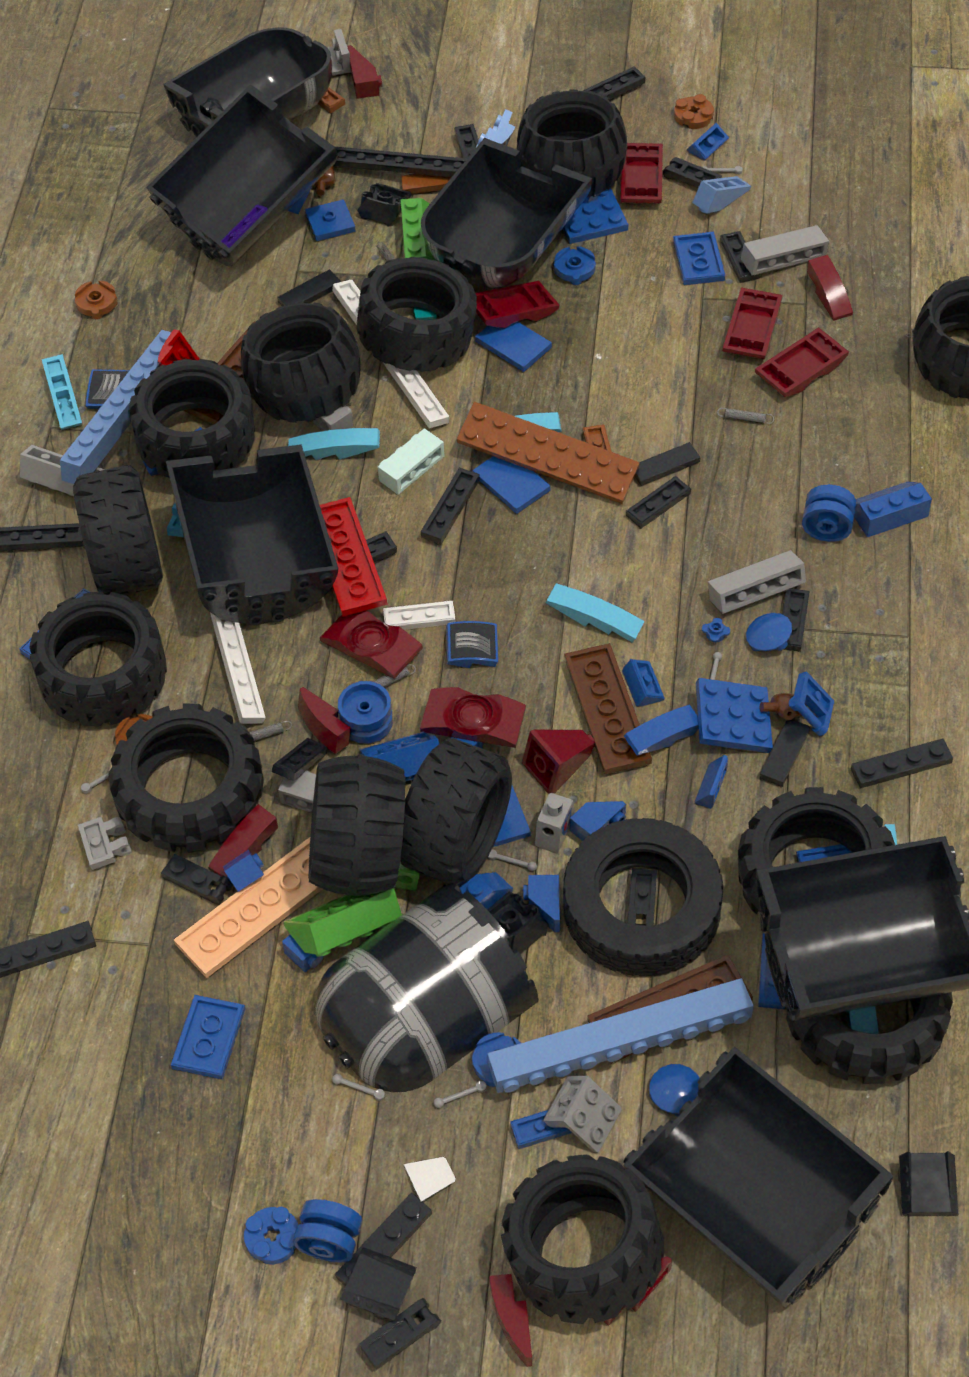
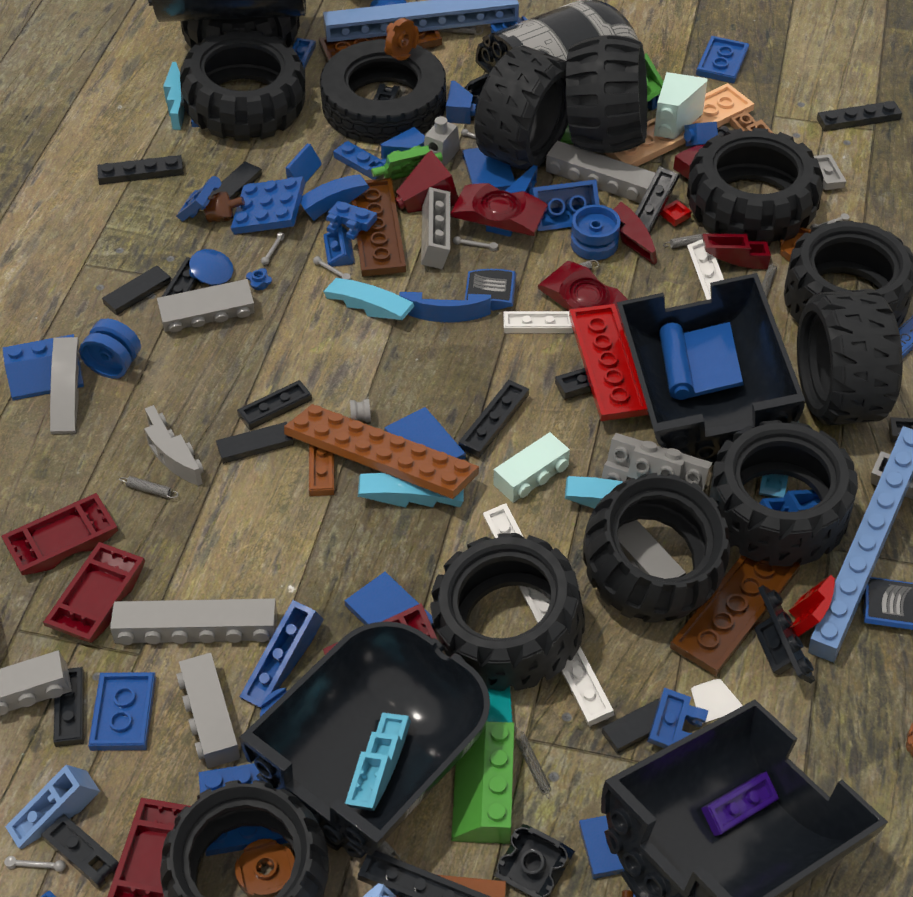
camera: 175 degrees left, 5 degrees down
(178, 907) = (747, 122): none -> medium nougat slope
(189, 676) = (771, 278): none -> light grey piece
(200, 338) = (779, 641): none -> black bracket
(227, 699) = (738, 250): none -> dark red slope
(253, 313) = (715, 698): none -> white sticker
(258, 558) = (699, 360): none -> blue door
(270, 884) = (679, 104): none -> light aqua slope
(271, 758) = (676, 213): none -> red plate
(287, 282) = (670, 717): none -> blue plate
(314, 452) = (635, 458): none -> light grey bracket
(499, 228) = (378, 762): none -> medium azure slope
(517, 608) = (448, 310): none -> blue slope
(539, 690) = (435, 228): none -> light grey brick
(575, 495) = (360, 410): none -> light grey wheel
(587, 301) = (283, 652): none -> blue slope
(589, 777) = (402, 163): none -> bright green plate
(626, 648) = (317, 260): none -> light grey hinge
(629, 906) = (395, 45): none -> dark orange plate
(634, 258) = (209, 711): none -> light grey brick
(634, 701) = (352, 216): none -> blue plate
(646, 803) = (358, 159): none -> blue plate
(665, 313) = (193, 621): none -> light grey brick
(736, 439) = (172, 449): none -> light grey slope
(838, 606) = (136, 290): none -> black tile
(857, 479) = (64, 385): none -> light grey slope

